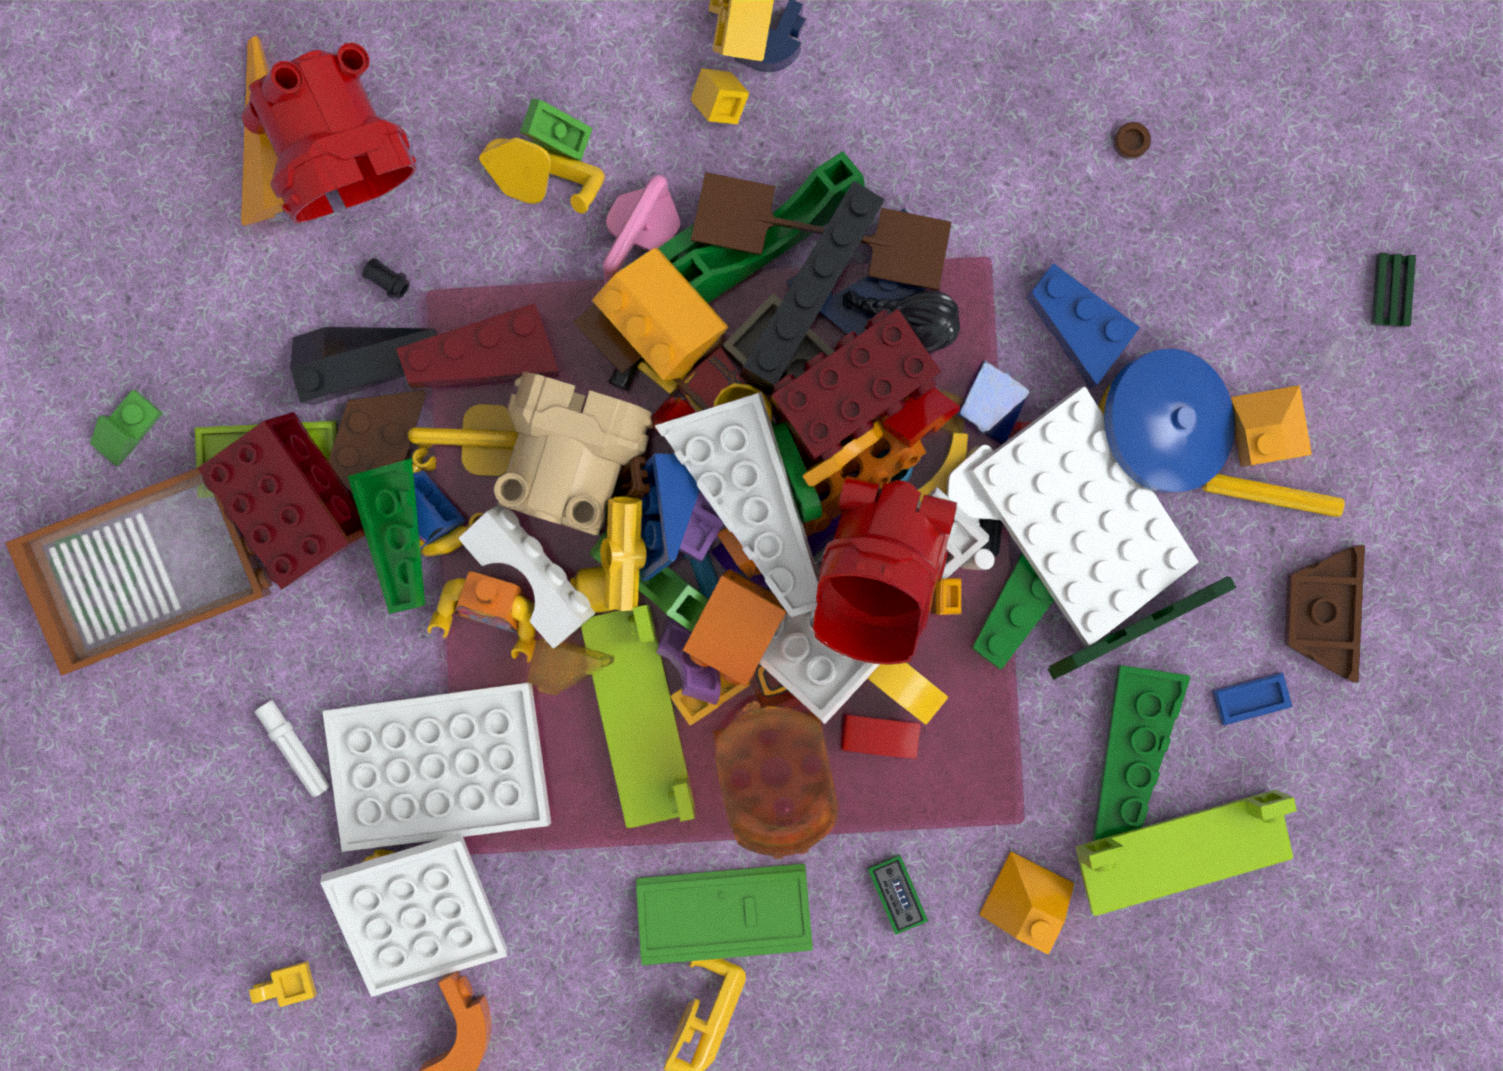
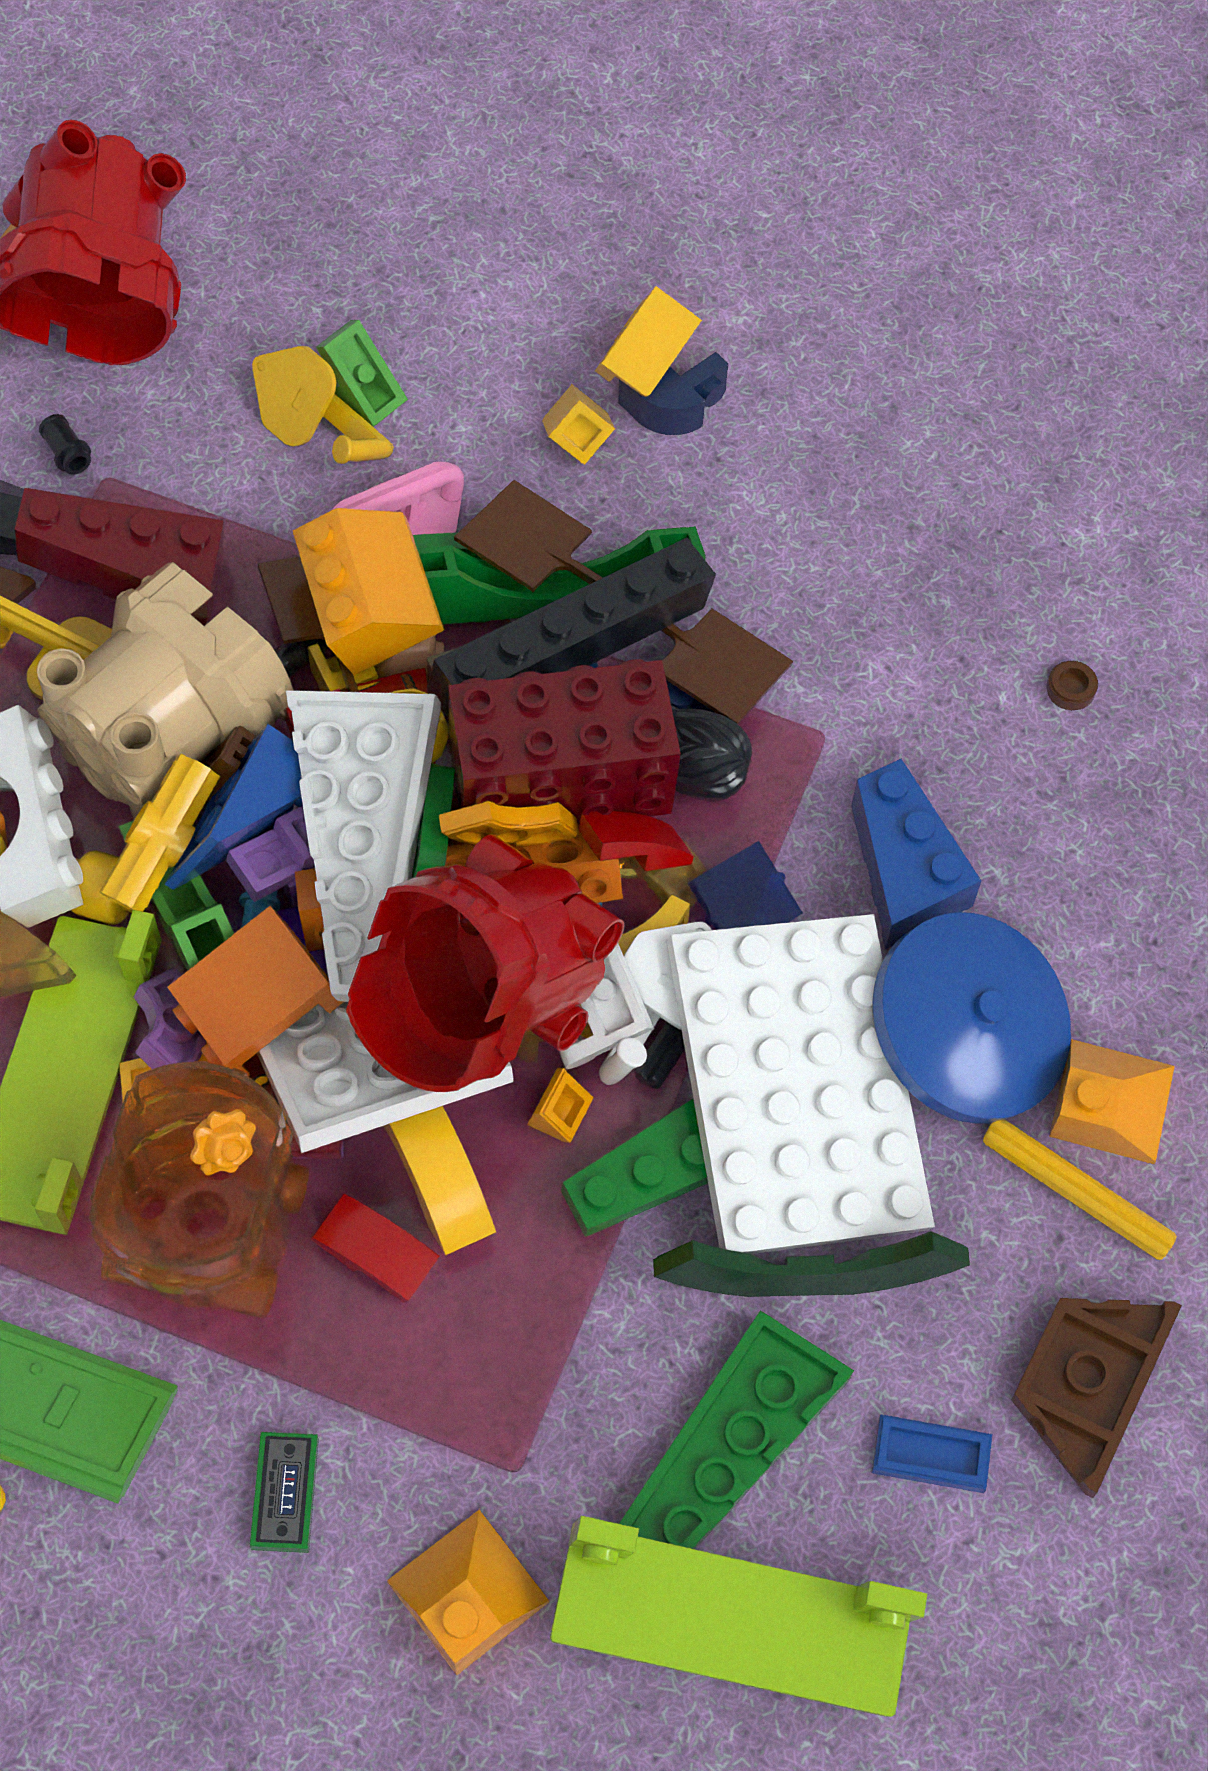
camera: 25 degrees right, 25 degrees down
(795, 769) = (222, 1142): none -> light orange plant

